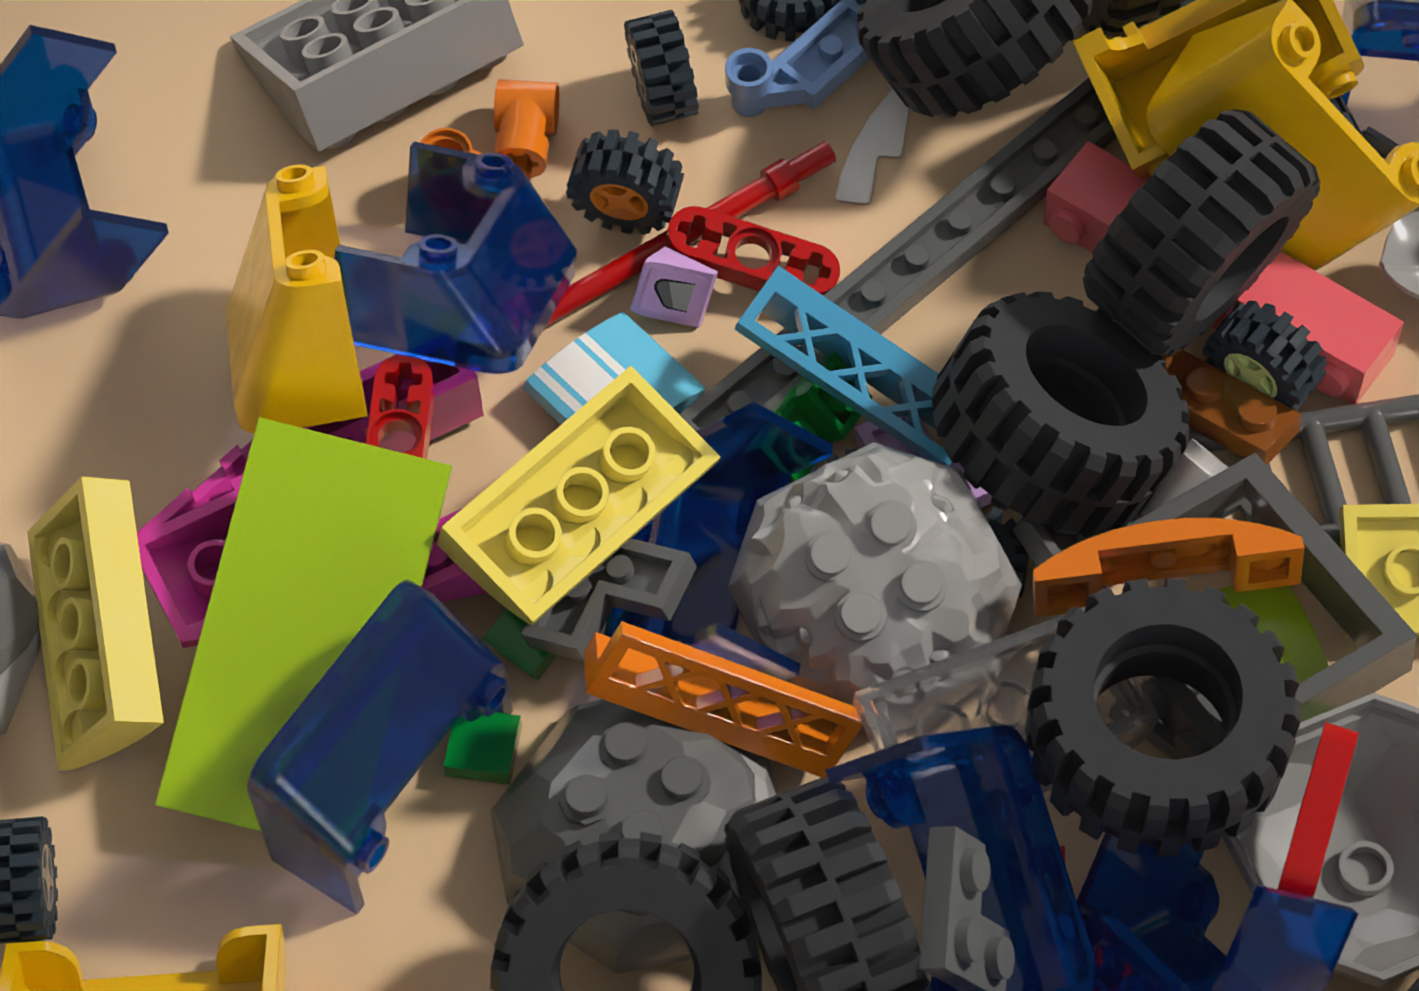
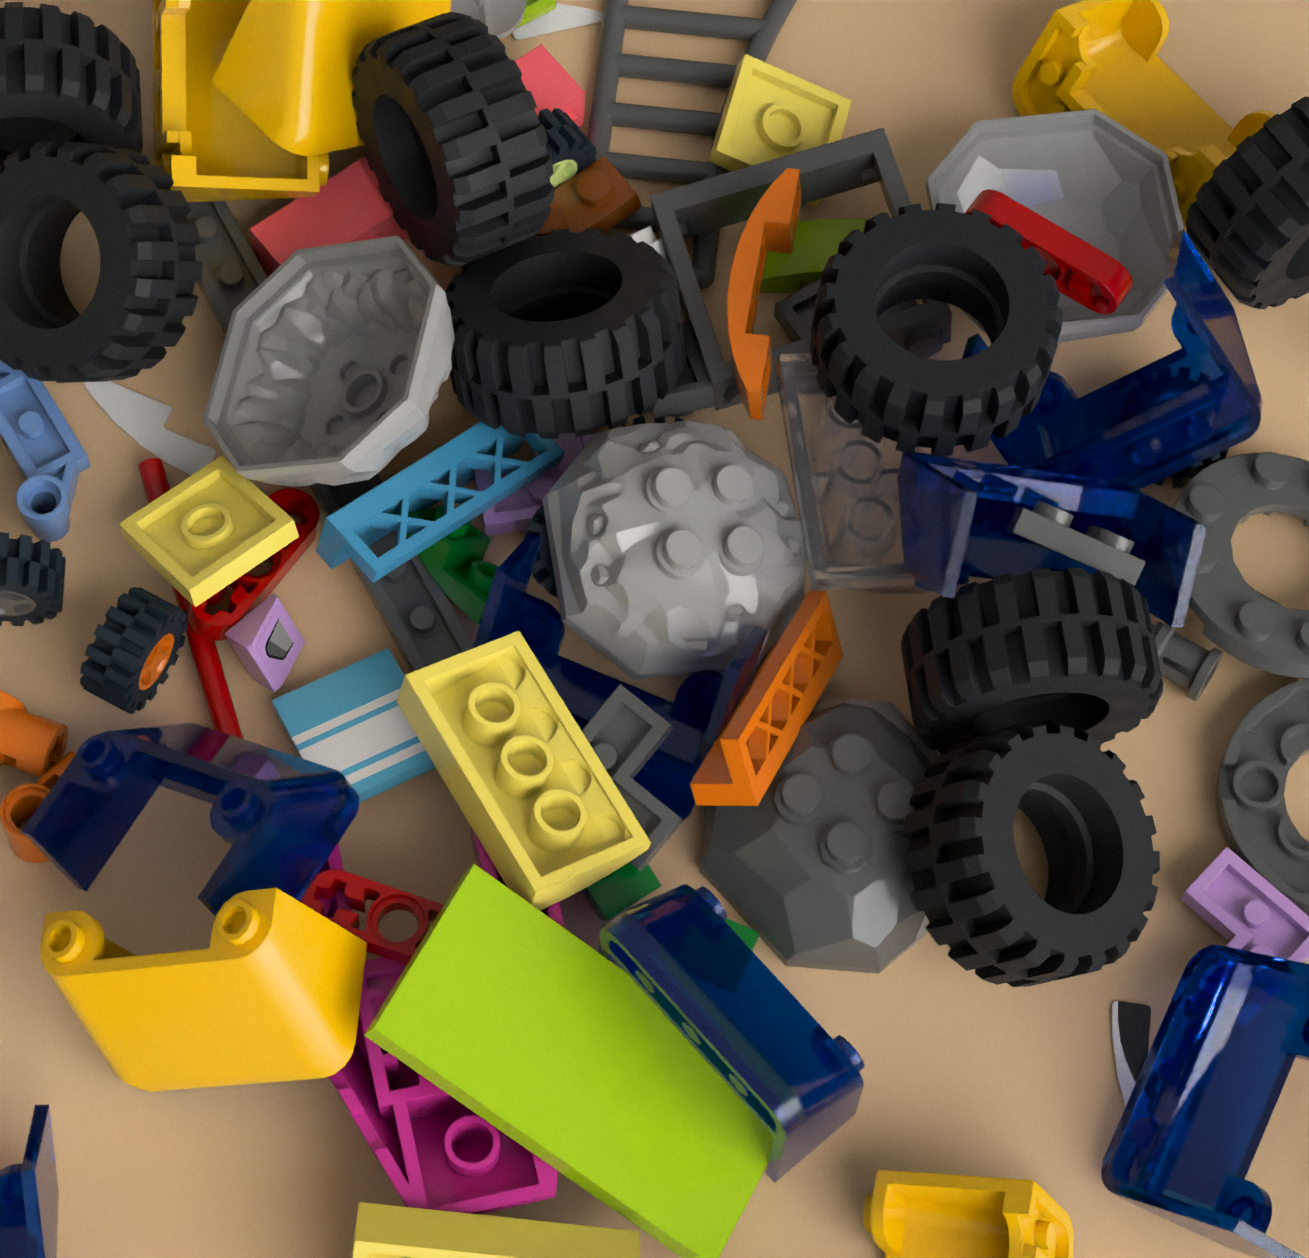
camera: 80 degrees left, 5 degrees up
(755, 197) = (208, 531): none -> light yellow plate
(933, 227) = (331, 365): none -> light grey rock

